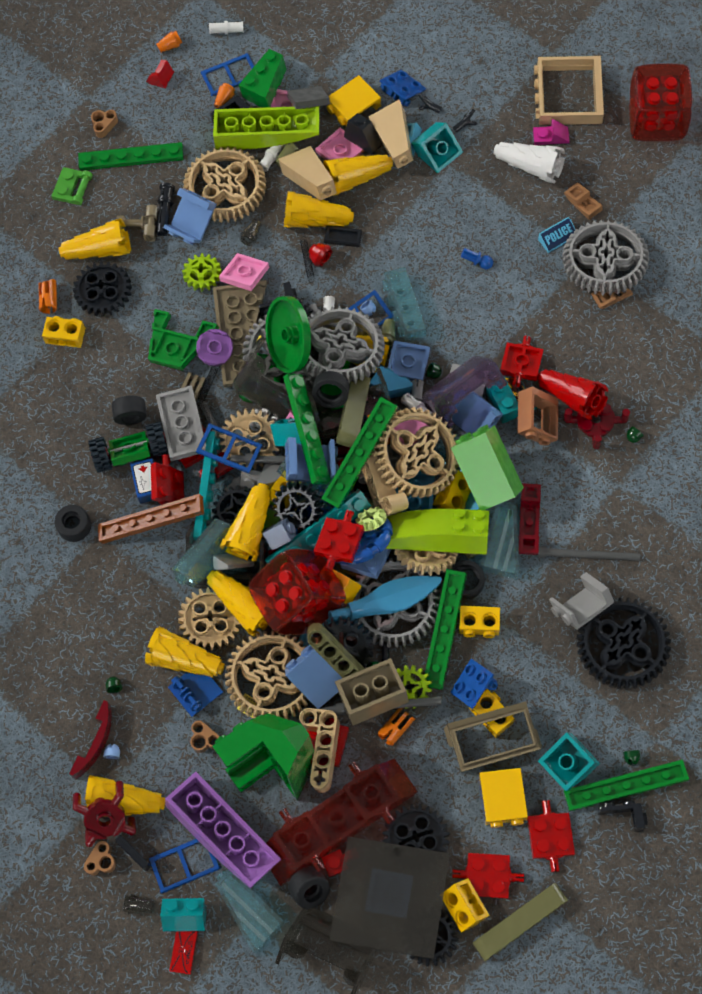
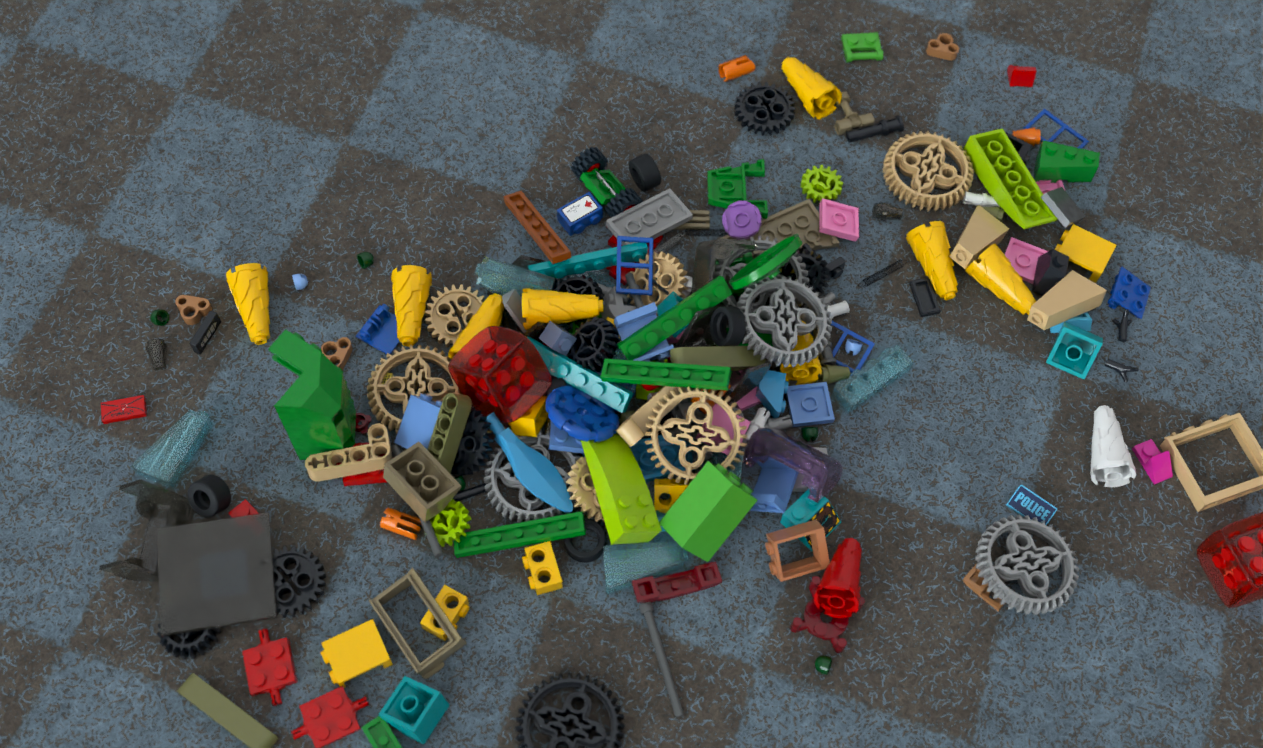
camera: 60 degrees right, 5 degrees down
(62, 335) = (704, 93): yellow brick -> none
(75, 534) = (513, 179): black tyre -> none
(82, 764) = (330, 263): dark red slope -> none
(94, 896) = (160, 313): none -> dark green hinge
(104, 807) = (232, 290): dark red plate -> none
(130, 156) = (919, 84): green plate -> none
(166, 482) = (581, 230): red plate -> none
(169, 42) = (1062, 70): orange cone -> none
(183, 914) = (155, 394): teal brick -> none
(189, 878) = (197, 390): blue window -> none
(191, 217) = (875, 153): medium blue panel -> none
(221, 830) = (240, 399): medium lavender slope -> none
(226, 27) = (1106, 112): white pin -> none
(320, 254) = (892, 281): red cone -> none
(339, 540) = (566, 390): red plate -> none
(346, 813) = (289, 501): clear red piece -> none
(379, 517) = (610, 419): yellowish green gear -> none
(464, 905) = (228, 650): yellow brick -> none
(473, 683) = (470, 581): blue hinge -> none
(485, 261) = (962, 443): blue axle -> none
(521, 361) = (858, 515): red plate -> none
(581, 199) = (1088, 521): medium nougat slope -> none
(585, 604) = (595, 668): light grey panel -> none

